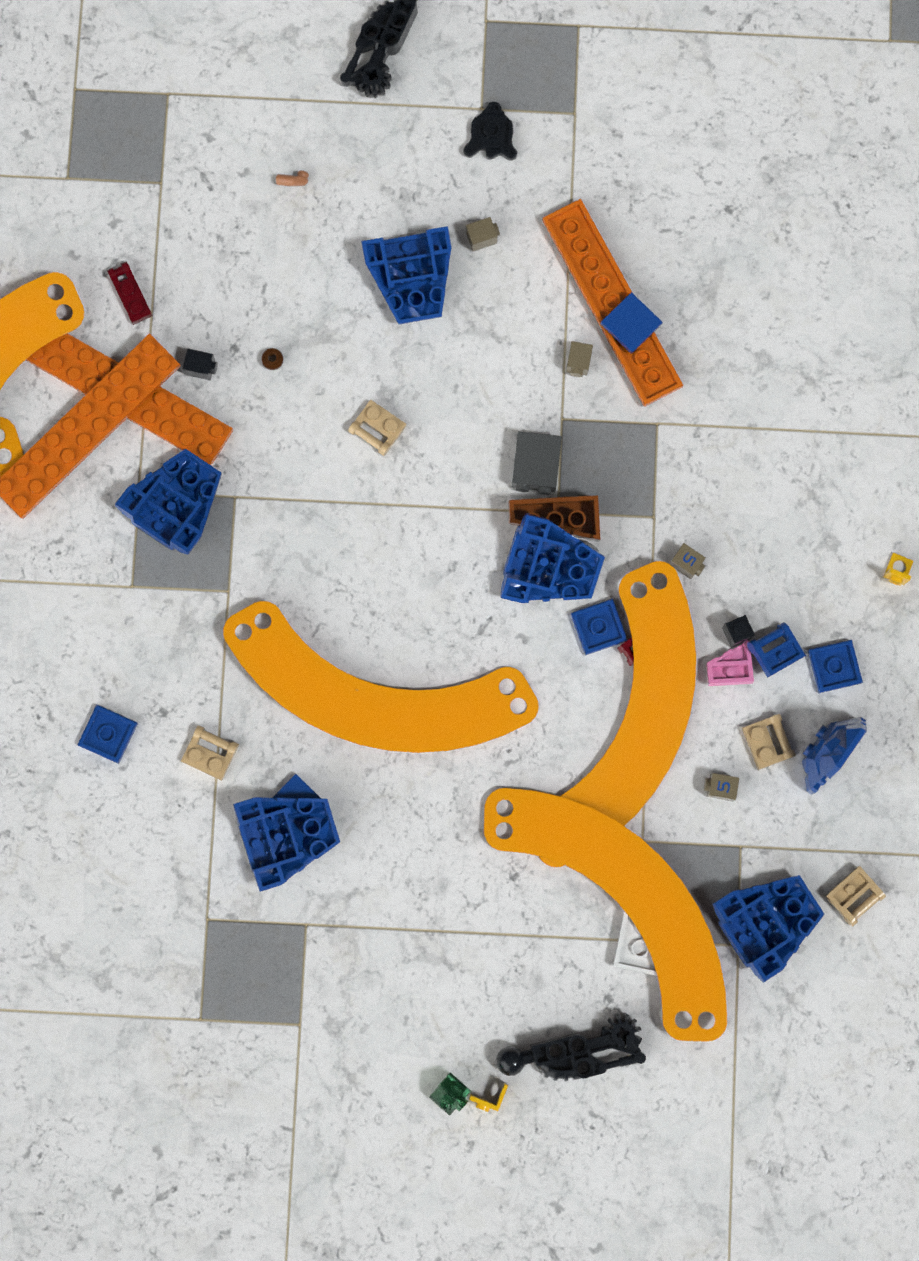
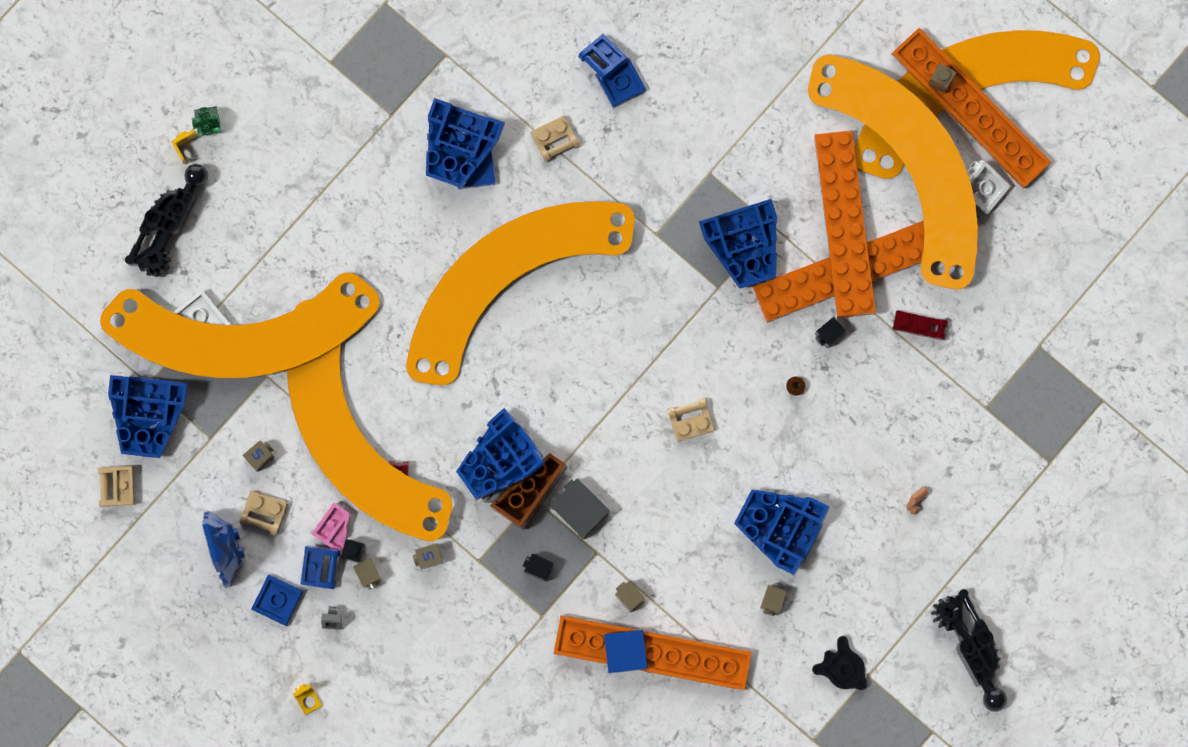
camera: 125 degrees right, 0 degrees up
(88, 767) = (607, 52): none -> blue plate
(598, 627) = (432, 461): blue tile -> none
(618, 457) = (537, 567): none -> black brick
(747, 602) = (367, 574): none -> dark tan brick
(814, 602) = (332, 619): none -> dark grey tile

